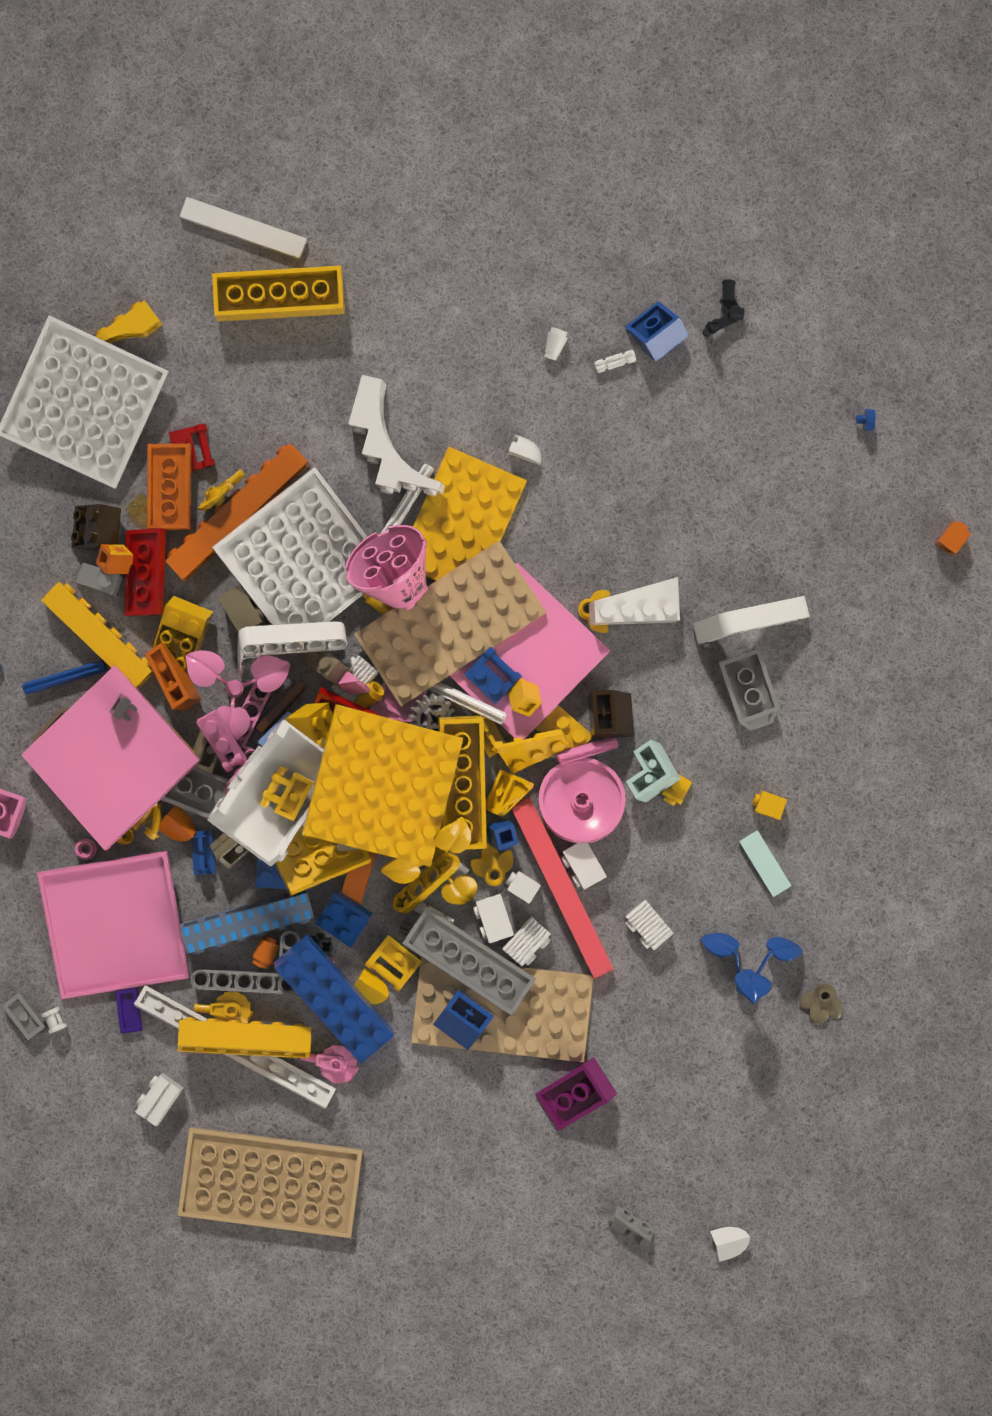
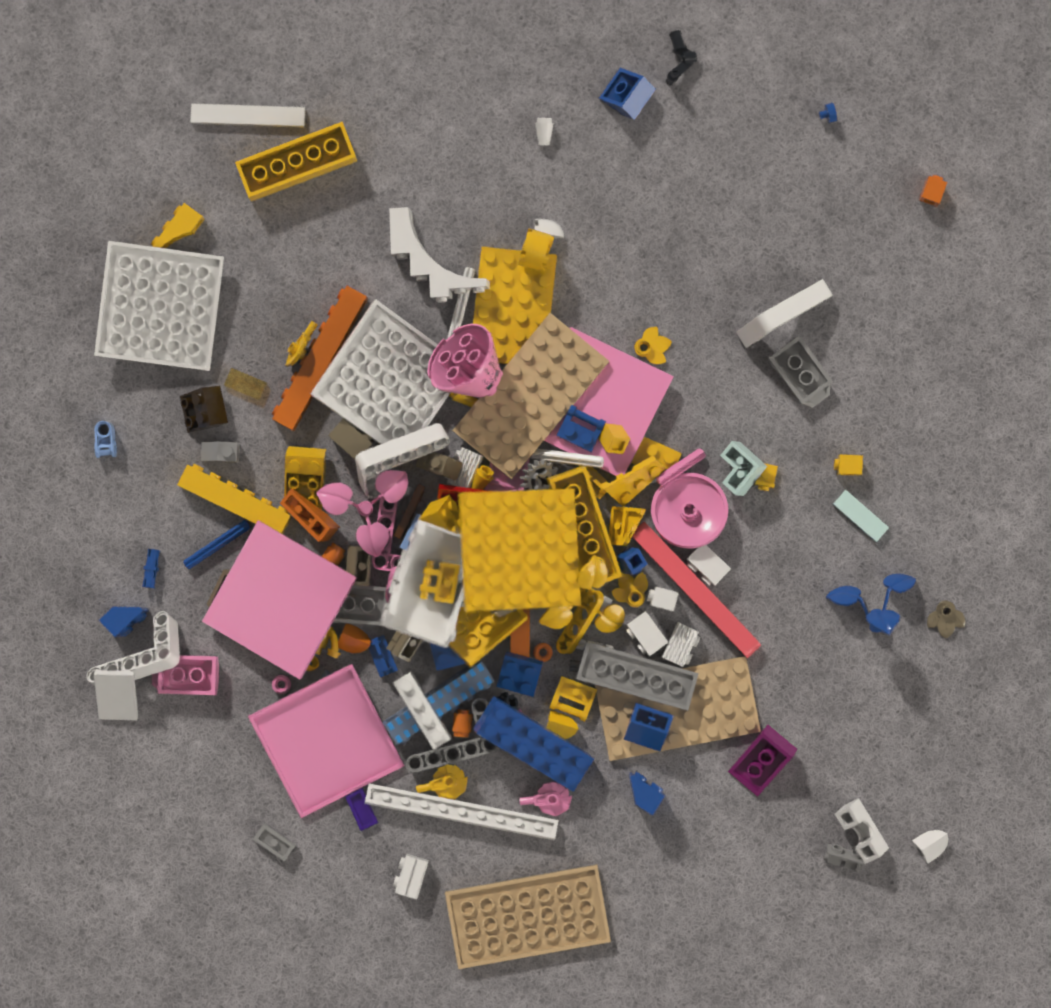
camera: 15 degrees left, 0 degrees up
(53, 1020) = (300, 837): white bush -> none
(114, 559) = (228, 430): orange brick -> none
(120, 707) = (275, 552): dark grey tile -> none
(146, 575) = (257, 434): red plate -> none
(169, 486) = (255, 354): orange tile -> none
(185, 436) = (257, 319): red plate -> none
(185, 727) = (334, 554): none -> orange brick
(221, 740) = (369, 555): bright pink plate -> none
(230, 947) = (421, 710): none -> white arch
(244, 1038) = (467, 801): yellow brick -> none
(352, 684) = (465, 473): bright pink slope -> none
(369, 903) = (543, 646): none -> orange plate
(437, 1091) = (645, 795): none -> blue slope
(504, 468) = (535, 250): none -> yellow brick
(610, 714) = (690, 430): dark brown slope -> none
(615, 361) = (599, 130): white axle -> none
(639, 606) = (688, 330): white wedge -> none
(649, 925) = (779, 598): white brick -> none
(664, 1221) = (871, 843): none -> white arch

